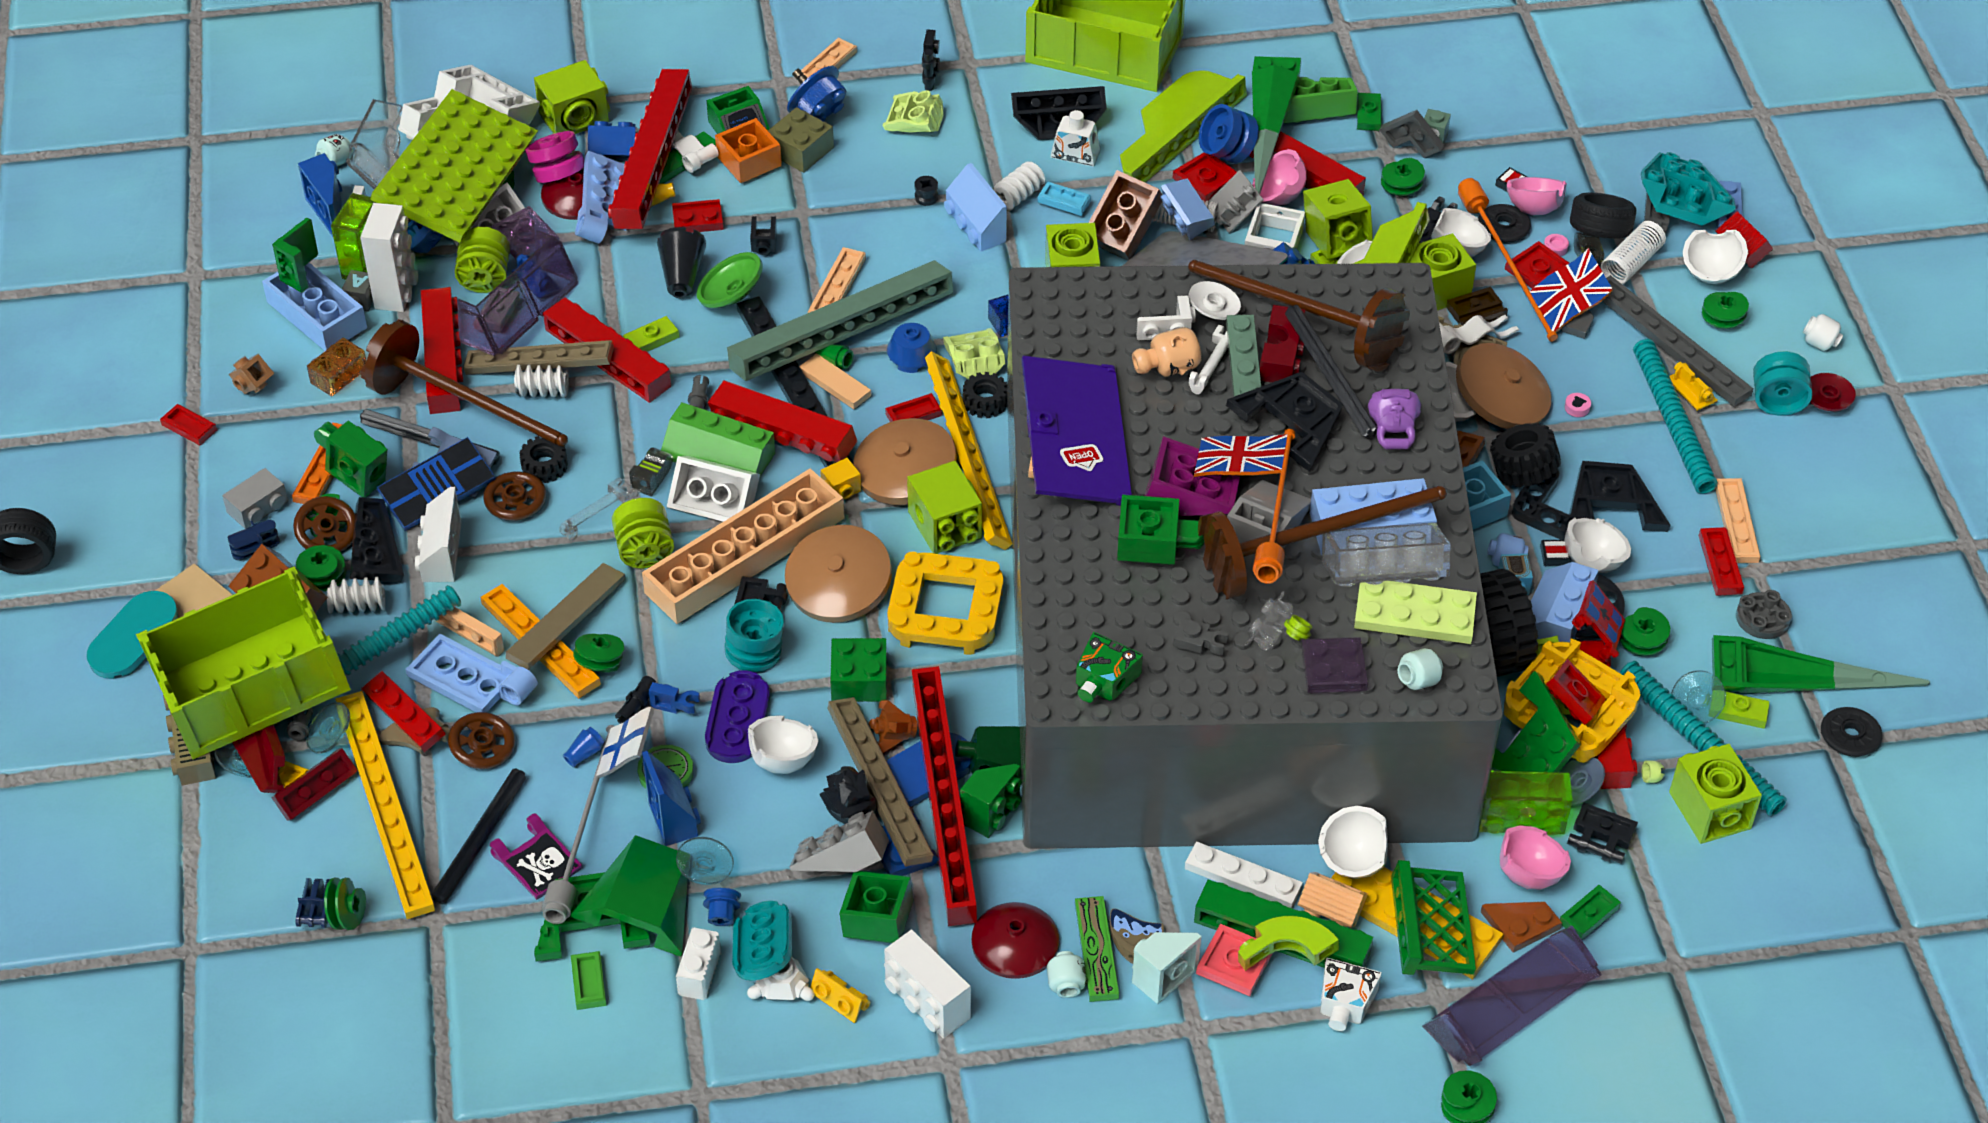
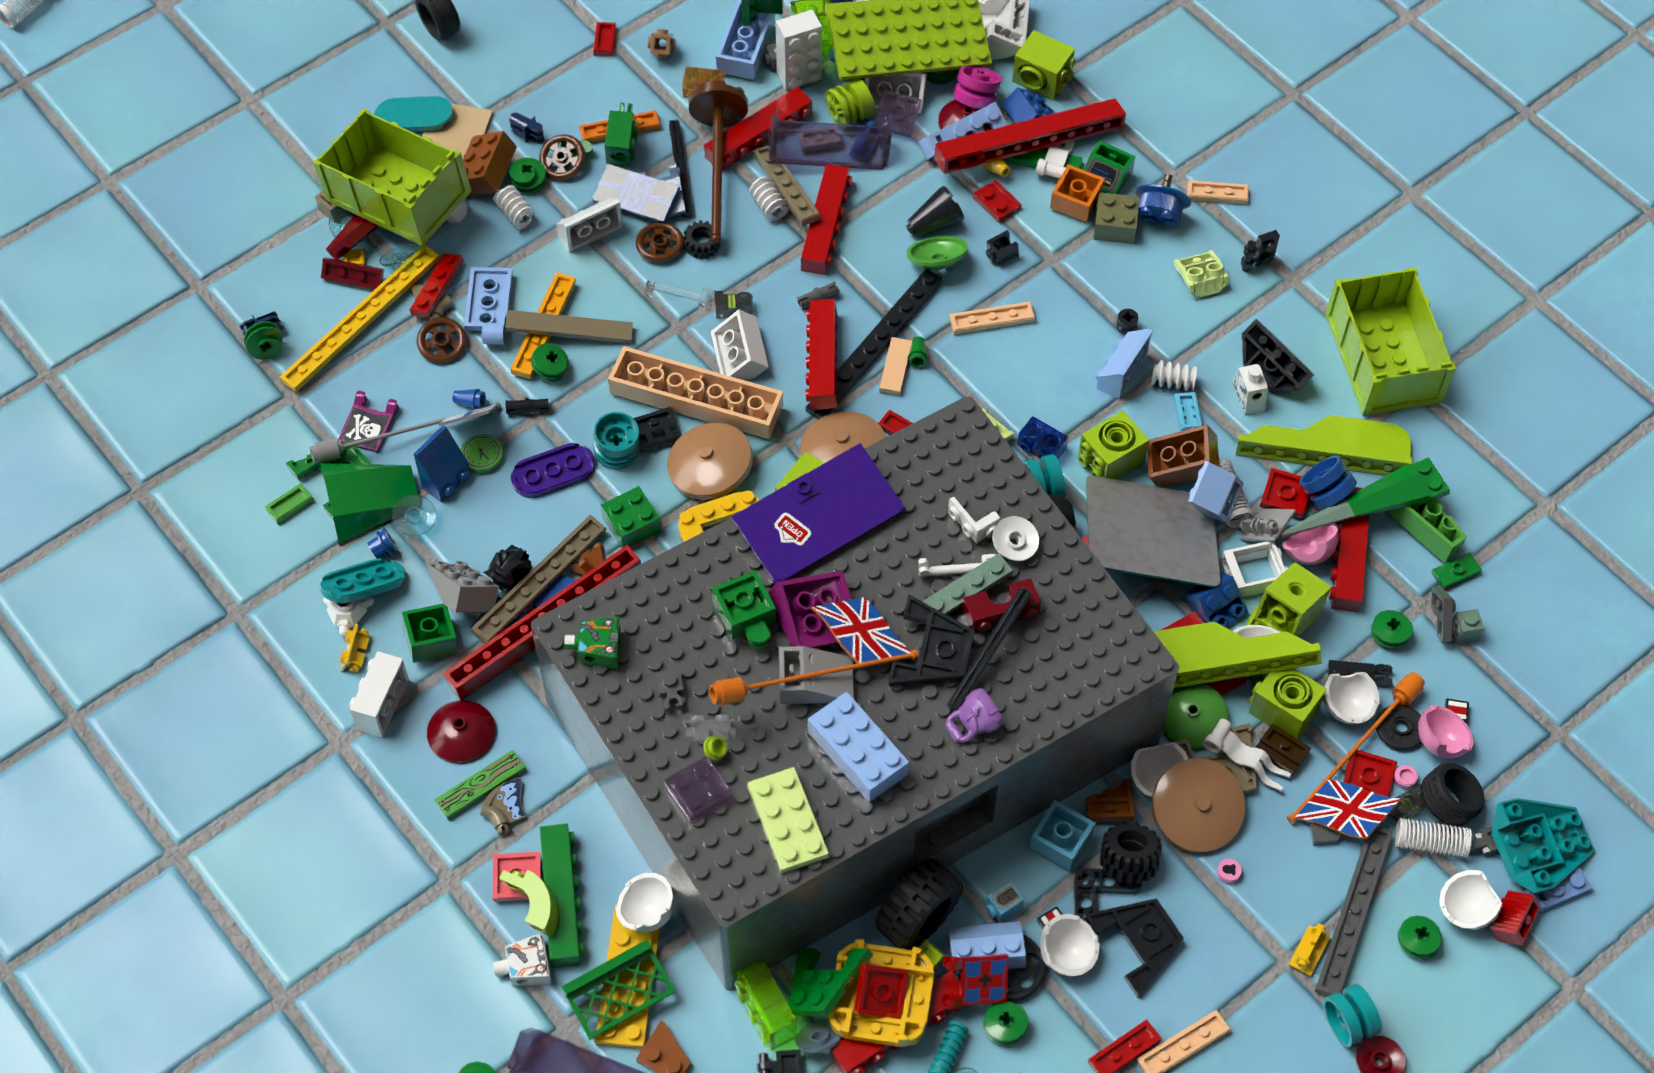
camera: 60 degrees right, 10 degrees up
(255, 498) = (561, 108): light grey brick -> none
(298, 728) = (394, 239): dark grey pin -> none
(374, 543) = (559, 194): black wing -> none
(399, 629) = (488, 242): teal piece -> none
(473, 631) = (528, 280): light nougat tile -> none
(478, 836) = (367, 382): black axle -> none
(642, 532) = (664, 328): lime wheel -> none
(653, 334) = (861, 237): lime plate -> none
(668, 698) = (539, 420): blue plate -> none
(698, 963) = (329, 556): white brick -> none
(718, 439) = (781, 328): bright green slope -> none
(781, 744) = (533, 505): white cylinder -> none
(839, 320) = (946, 337): sand green brick -> none
(842, 478) = (797, 417): yellow brick -> none
(910, 346) = (956, 387): blue cone -> none
(1066, 974) = (443, 776): light aqua head -> none
(1165, 962) = (475, 830): light aqua slope -> none
(1170, 353) = (935, 535): light nougat piece -> none
(1226, 554) = (740, 660): reddish brown piece -> none
(1243, 875) = (598, 848): white plate -> none
(1332, 900) = (600, 914): light nougat brick -> none
(1377, 328) = (1046, 657): reddish brown piece -> none
(1386, 554) = (814, 770): clear brick -> none
(1420, 669) = (723, 847): light aqua head -> none
(1506, 544) = (1027, 885): light blue head -> none
(1533, 858) = (717, 1034): bright pink cylinder -> none
(1675, 416) = (1266, 948): teal piece -> none
(1823, 332) = (1450, 1026): white head -> none

